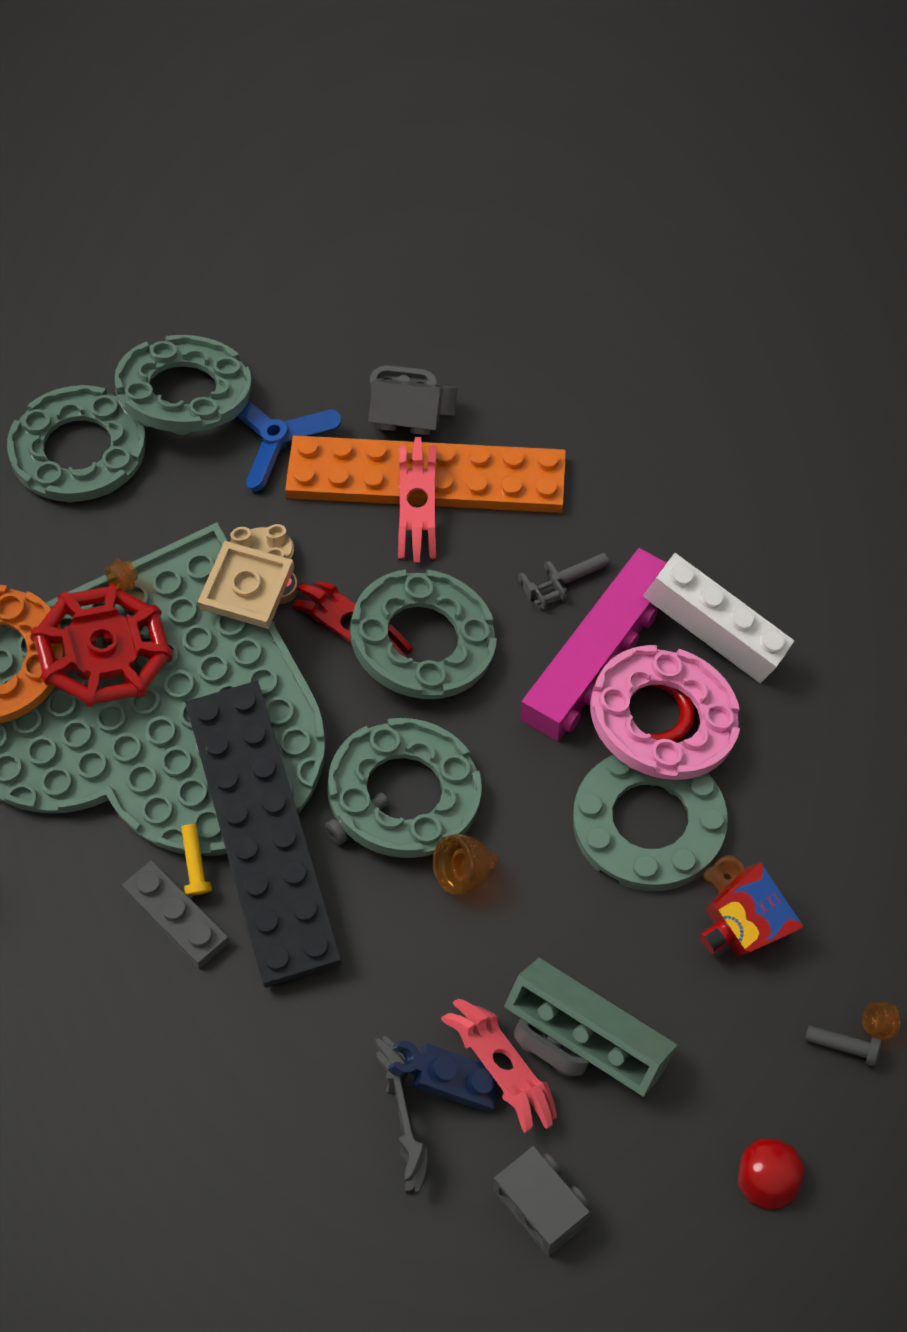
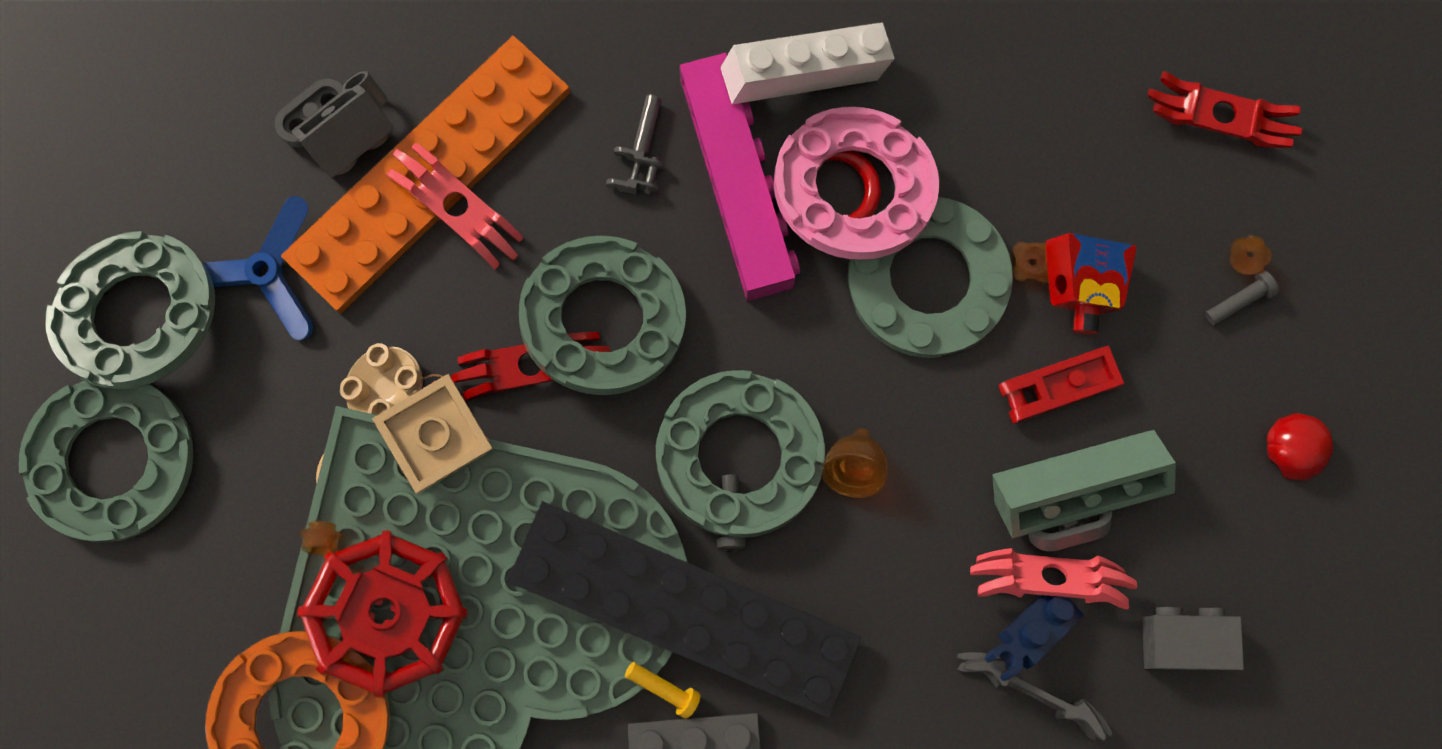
camera: 50 degrees left, 20 degrees up
(654, 962) = (1062, 384): none -> red plate

